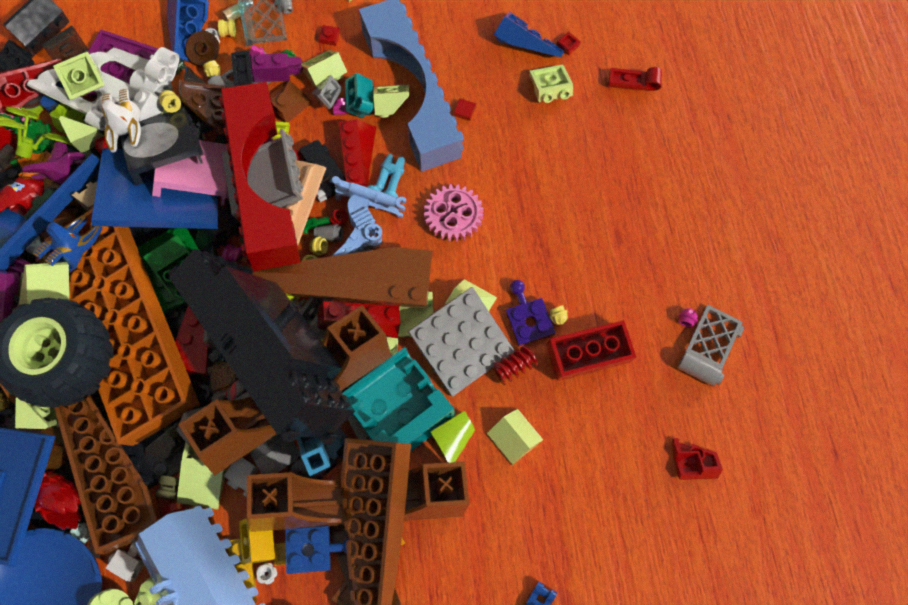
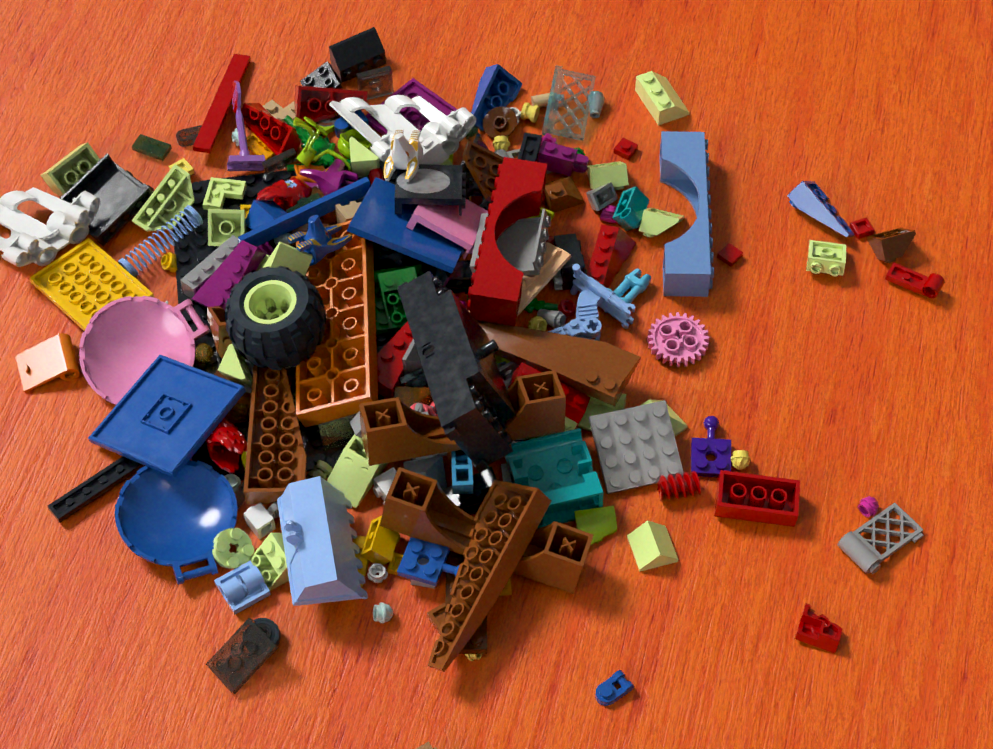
camera: 25 degrees right, 15 degrees down
(79, 75) = (380, 109): yellowish green slope -> none
(167, 97) = (450, 152): light yellow wheel -> none
(601, 49) = (891, 243): none -> reddish brown slope

